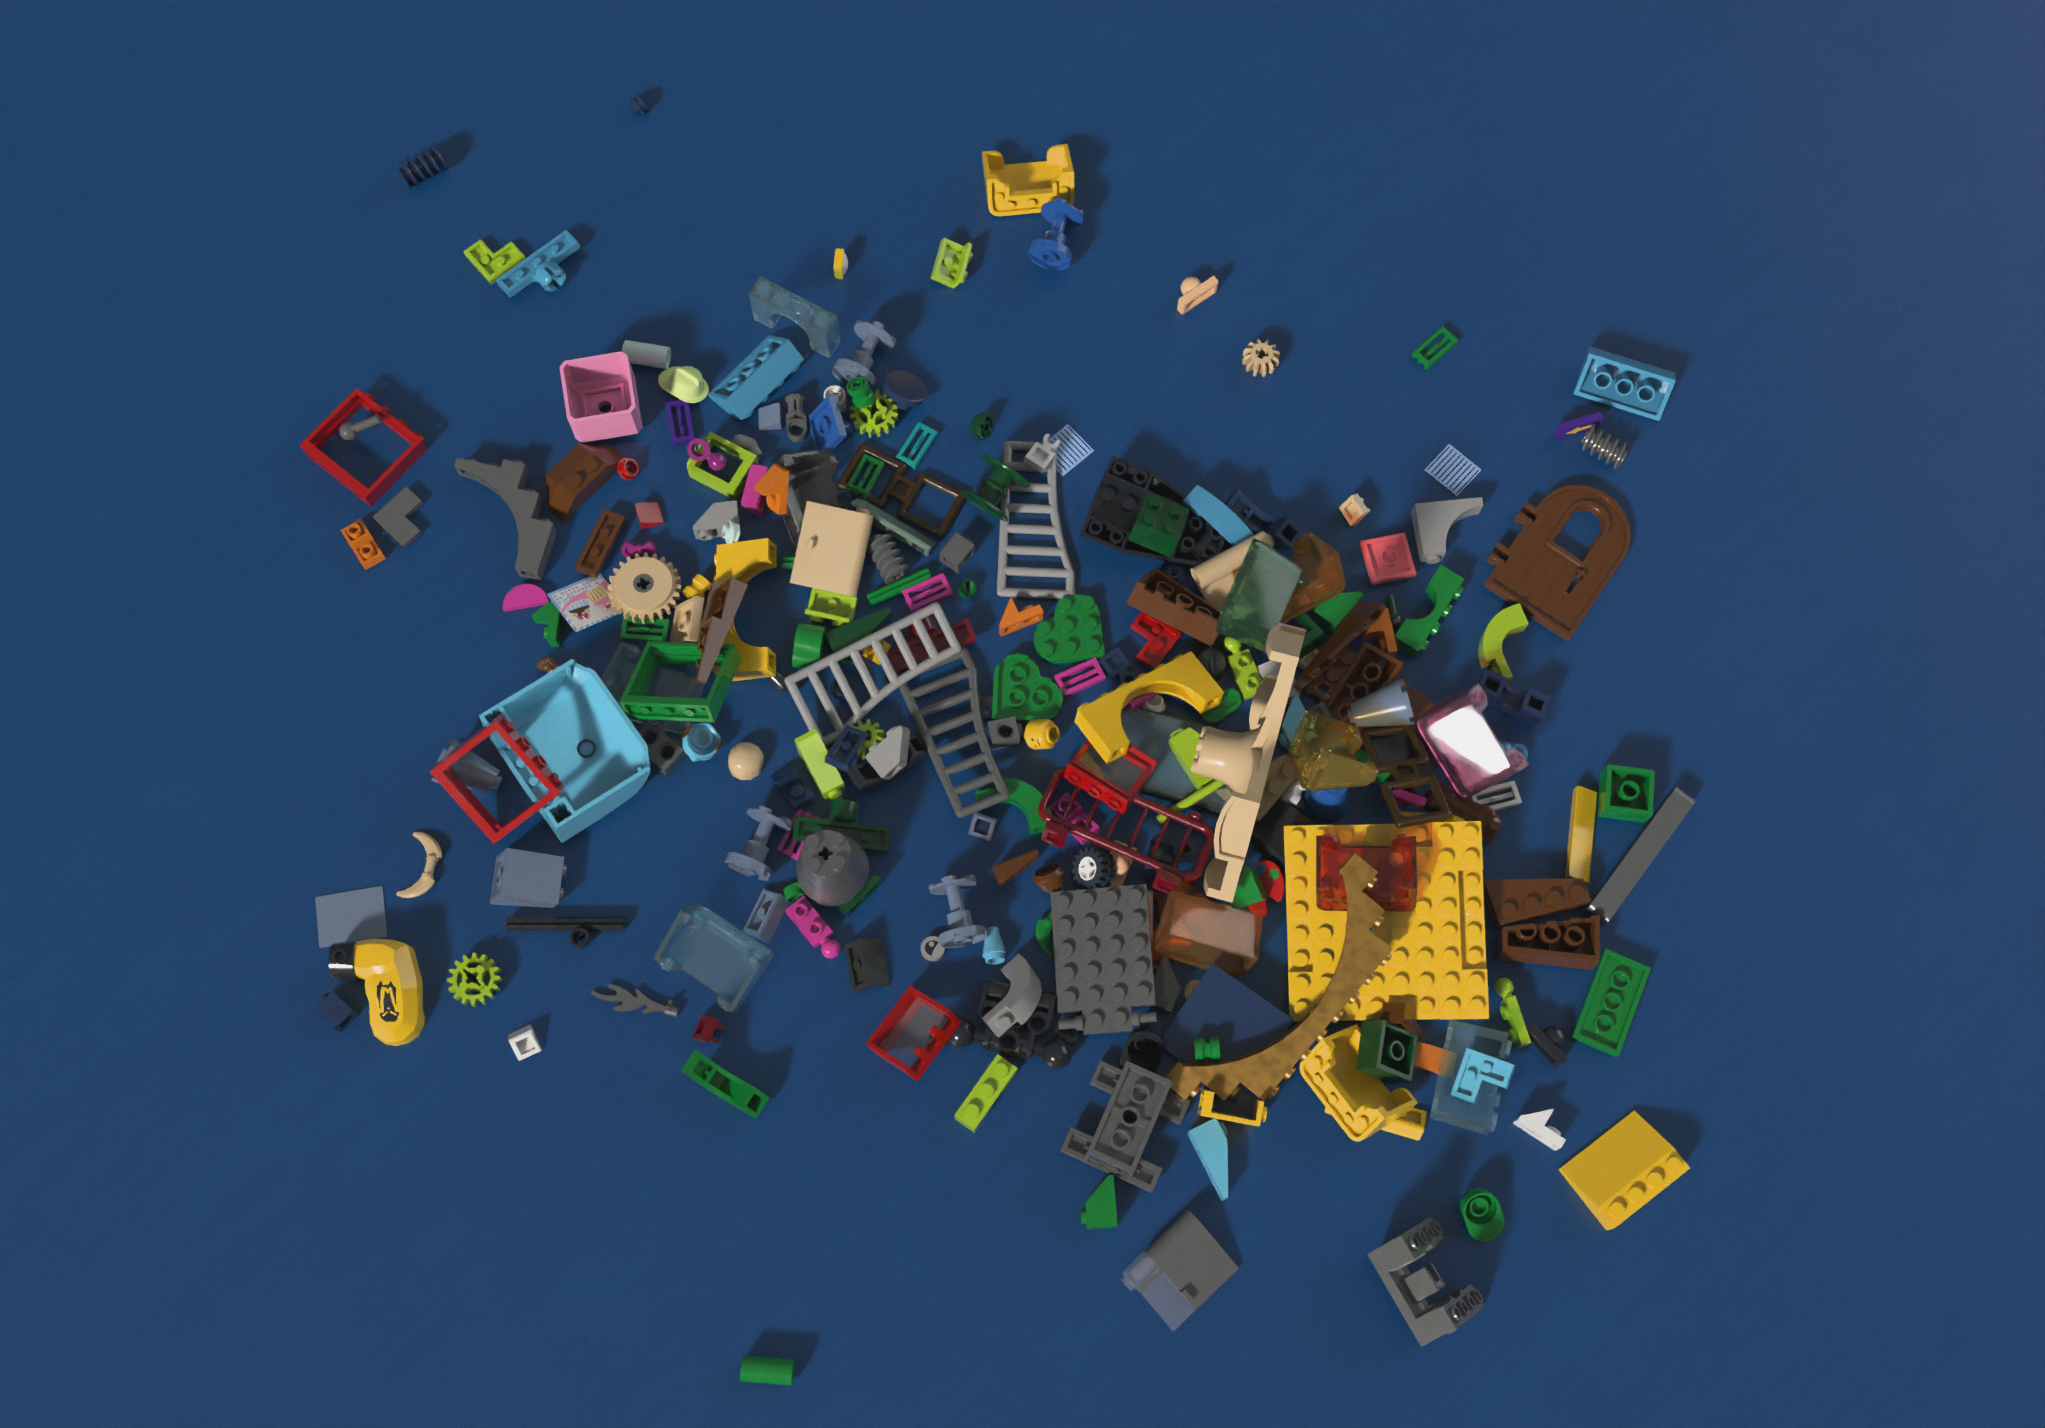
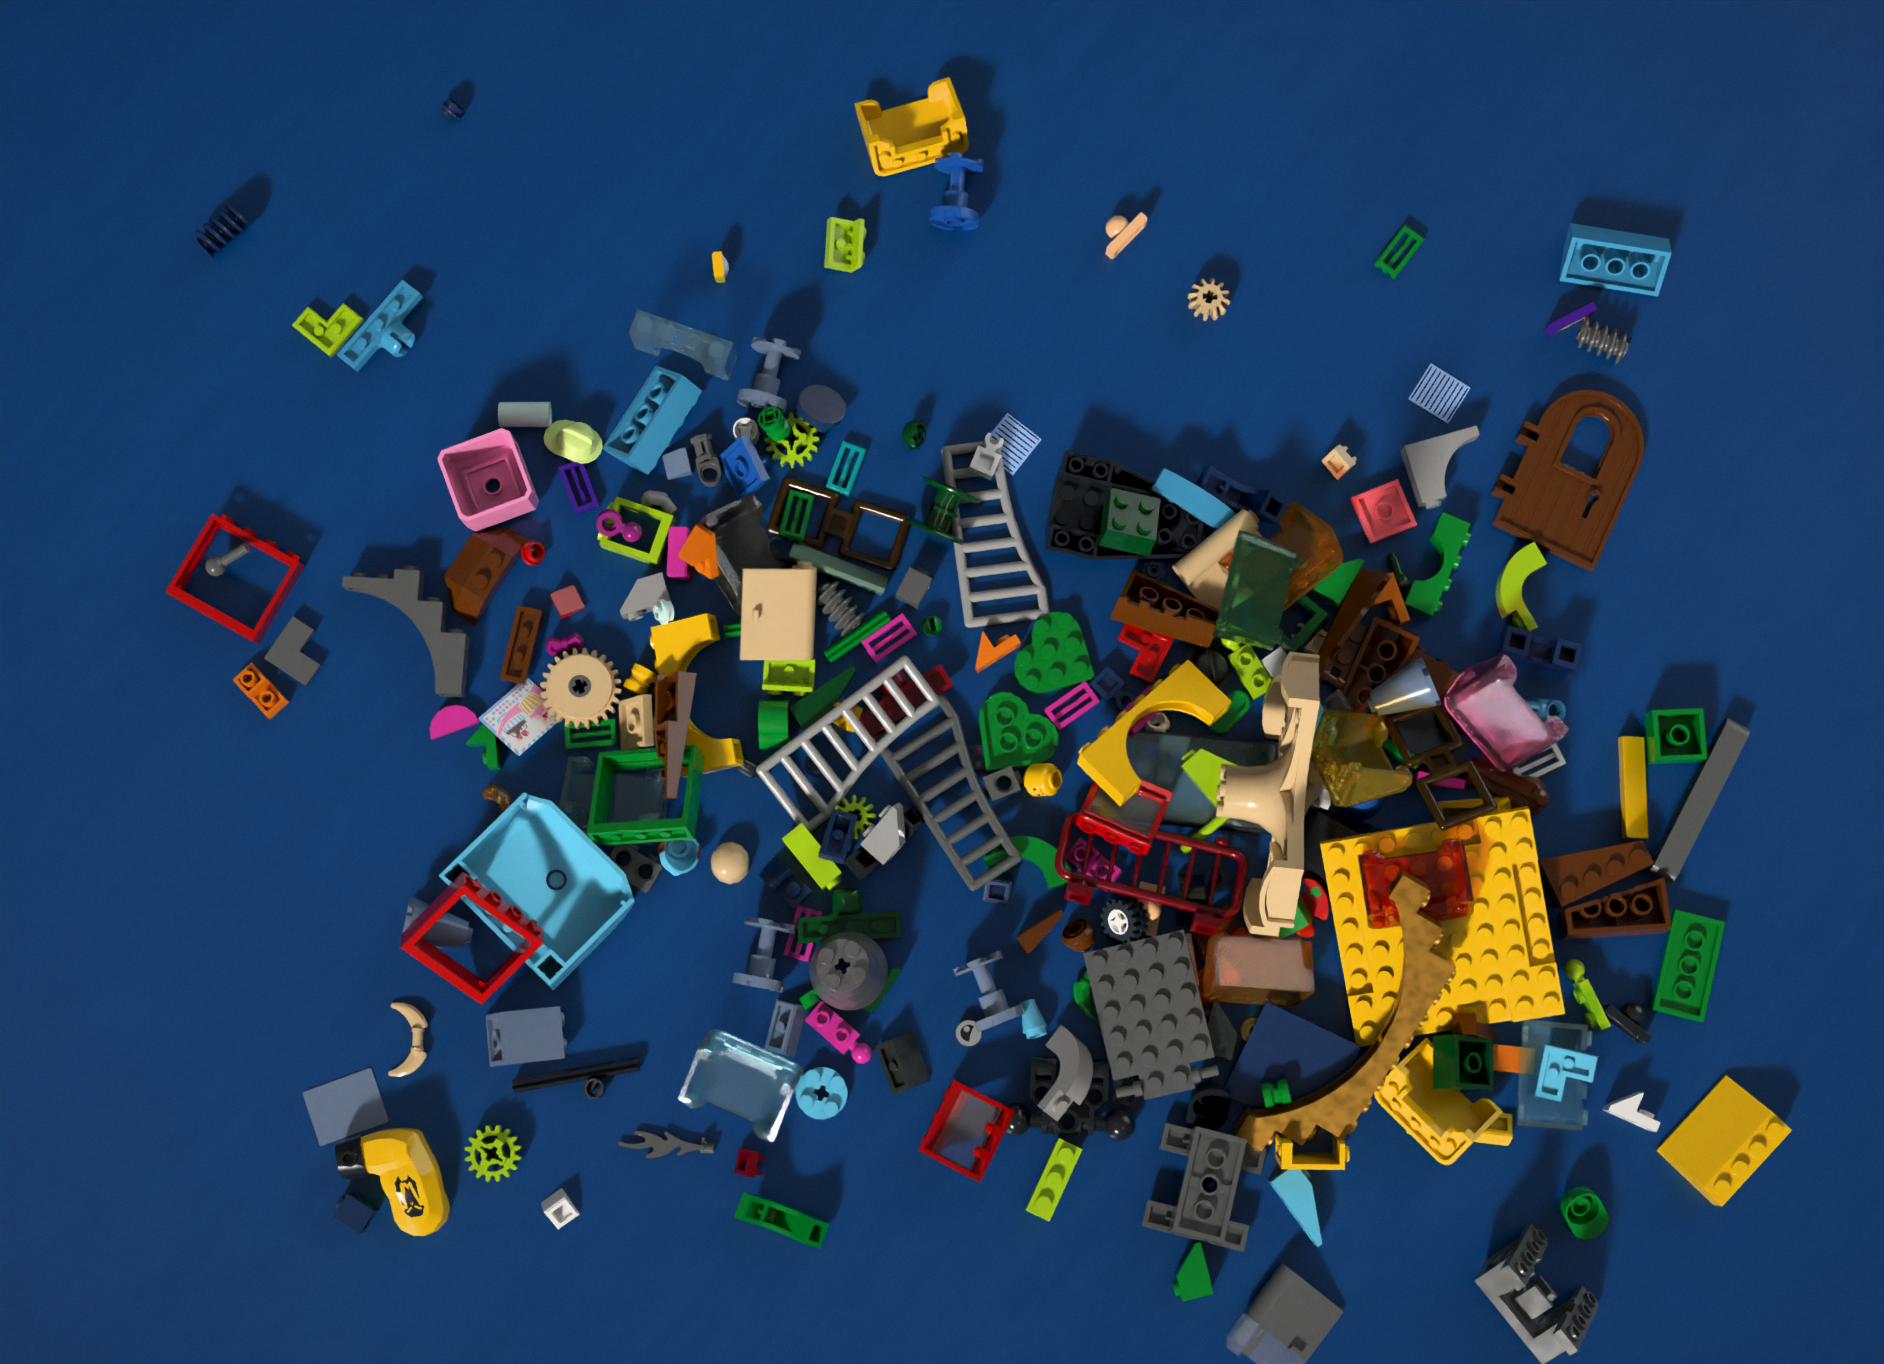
camera: 10 degrees left, 10 degrees up
(781, 966) = (829, 1105): none -> medium azure plate

